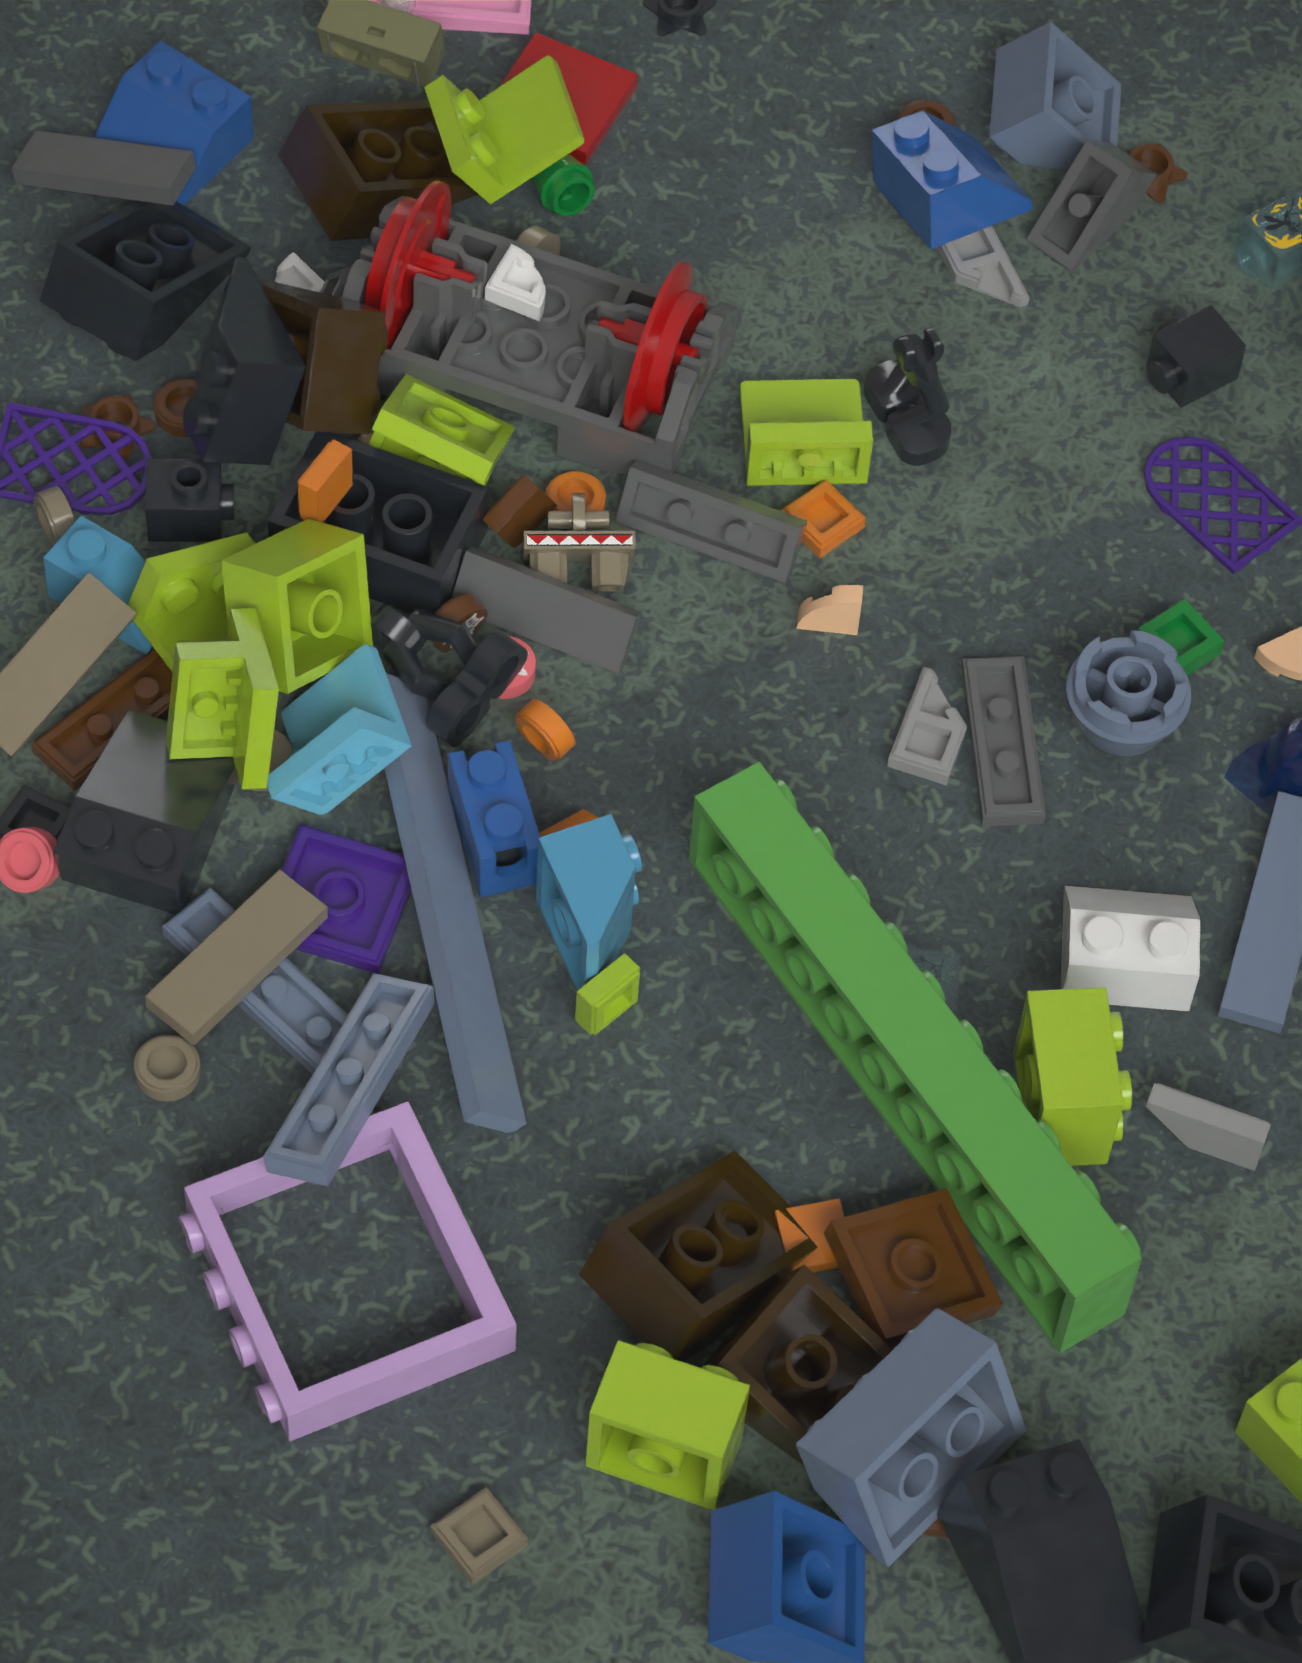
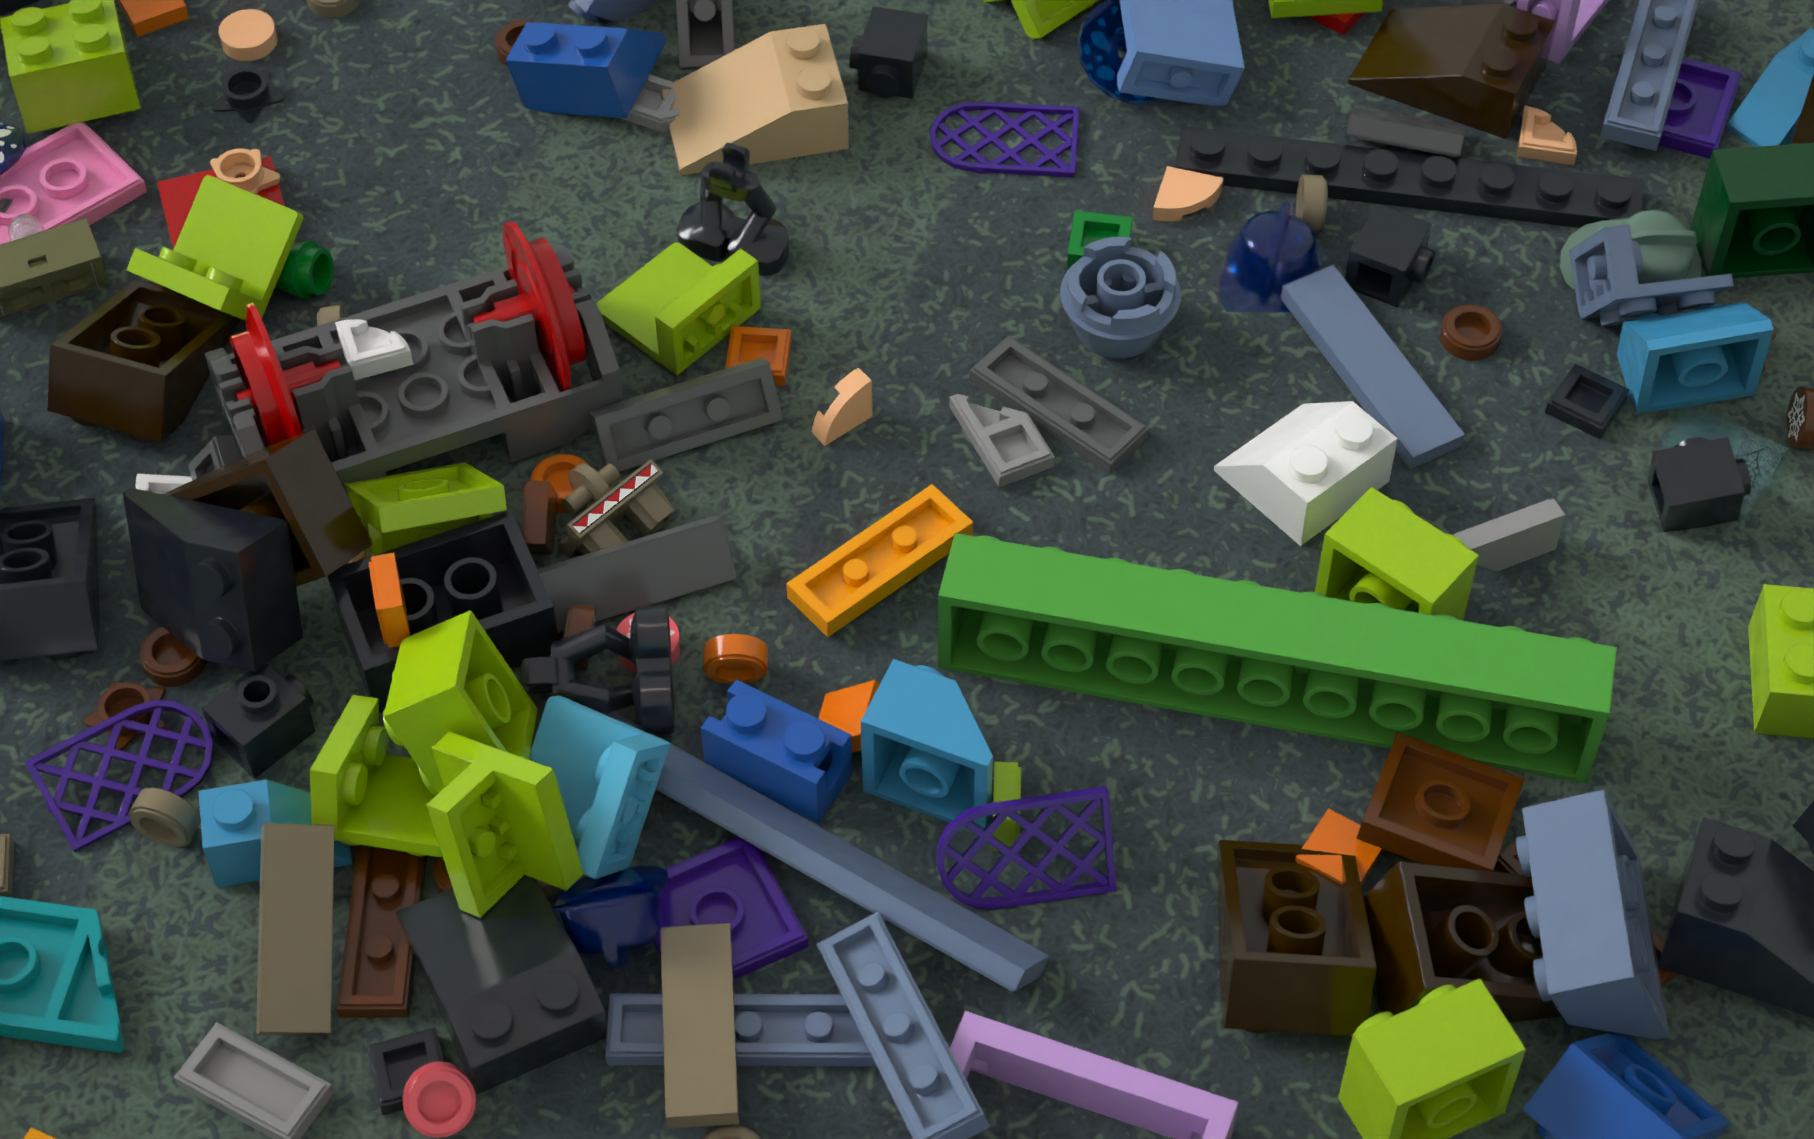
camera: 40 degrees left, 5 degrees down
(262, 833) = (614, 912): none -> clear blue piece
(548, 1061) = (1009, 808): none -> dark purple window
(596, 61) = (247, 164): none -> light nougat plate
(728, 742) = (878, 560): none -> light orange plate
(1046, 319) = (768, 96): none -> tan slope

